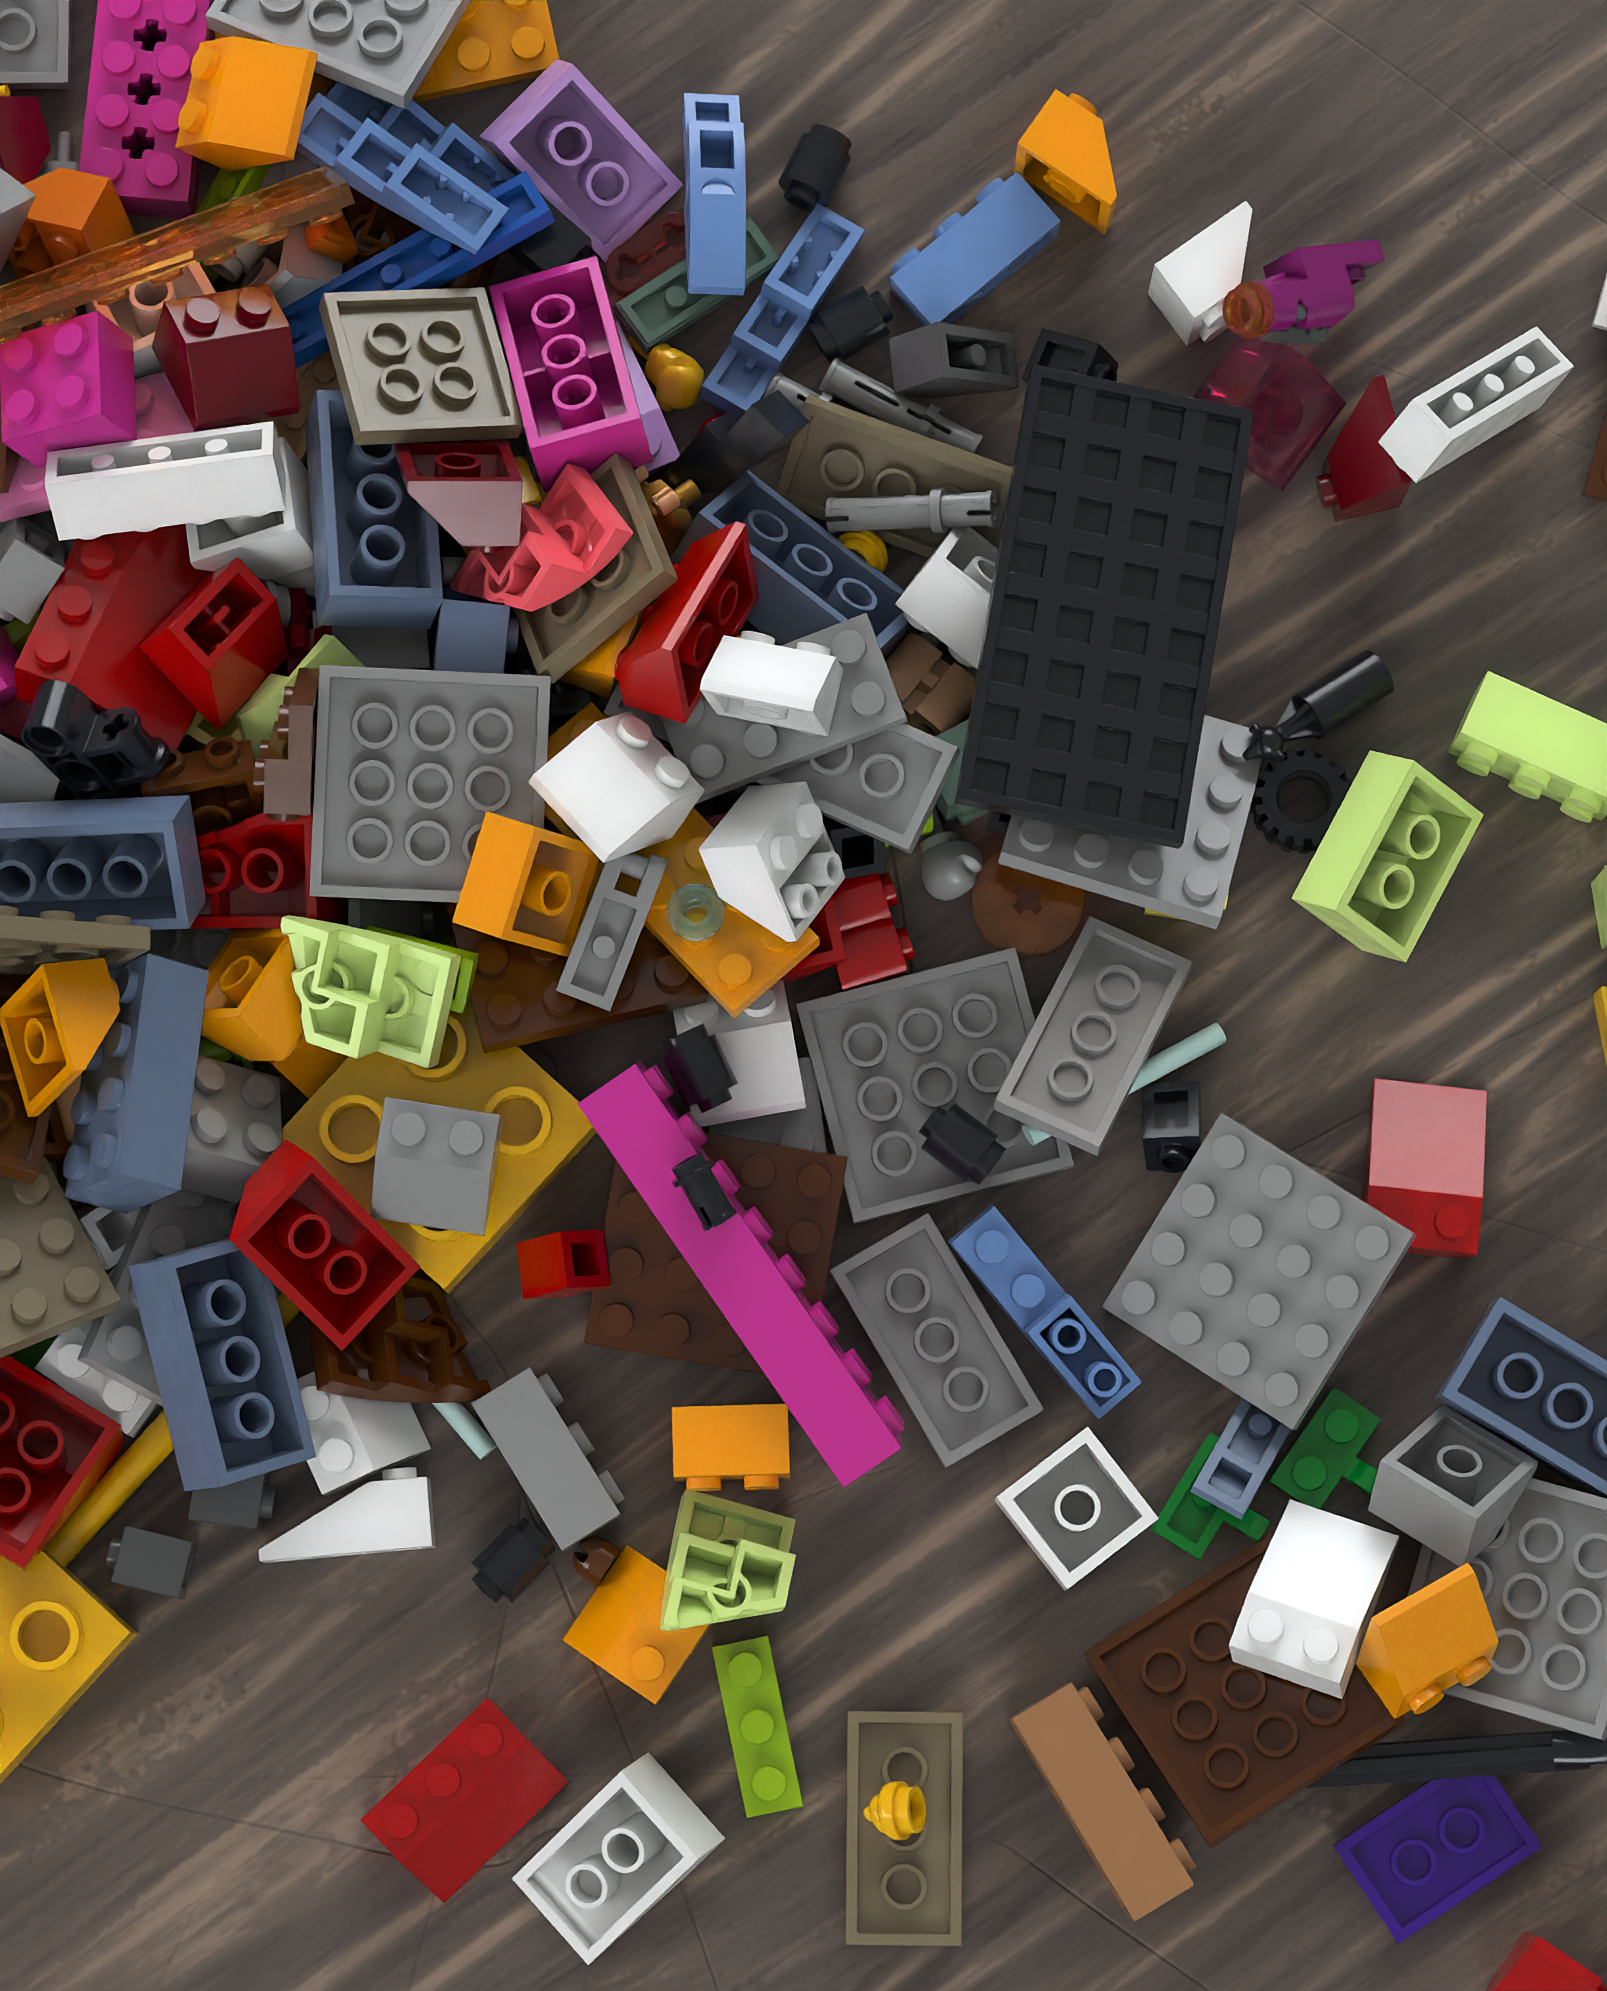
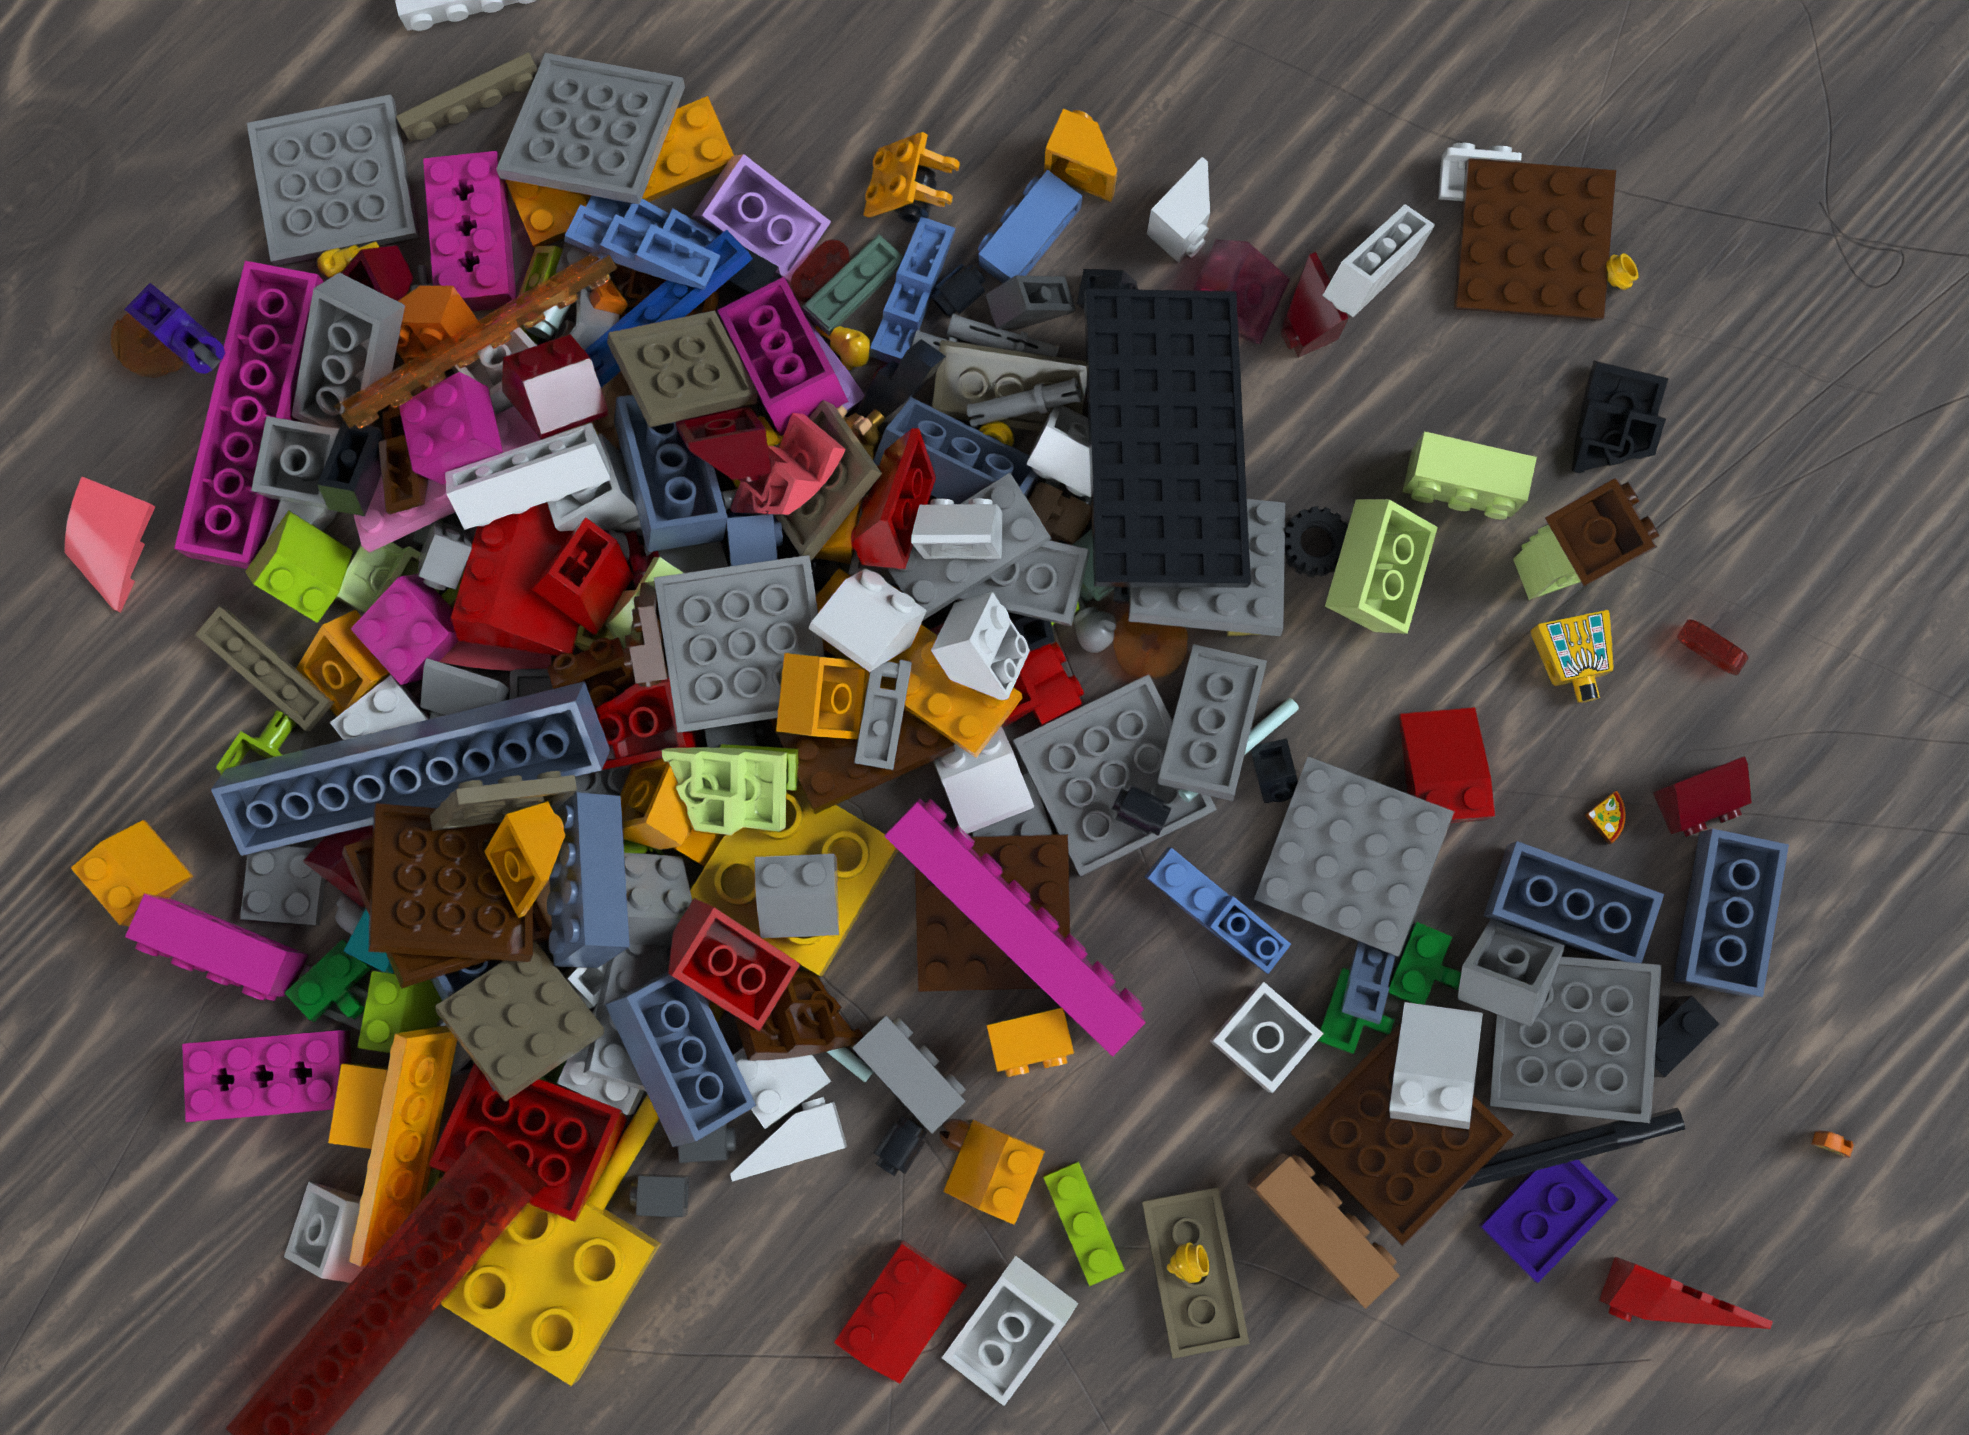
camera: 10 degrees left, 0 degrees up
(89, 748) = (512, 664): black piece -> none
(245, 102) = (533, 220): light orange slope -> none
(563, 1264) = (894, 942): red brick -> none
(692, 896) = (933, 682): clear light blue plate -> none
(699, 1068) = (959, 795): black brick -> none
(703, 1190) = (980, 878): black pin -> none
(714, 194) = (853, 222): medium blue slope -> none
(725, 1562) = (1042, 1121): yellowish green slope -> none
(792, 131) = (895, 173): none -> light orange plate
(936, 1340) = (1150, 943): light grey plate -> none
(1301, 293) = (1249, 211): magenta plate -> none
(1324, 706) = (1318, 476): black wheel -> none
(1429, 1643) = (1522, 1082): light orange slope -> none

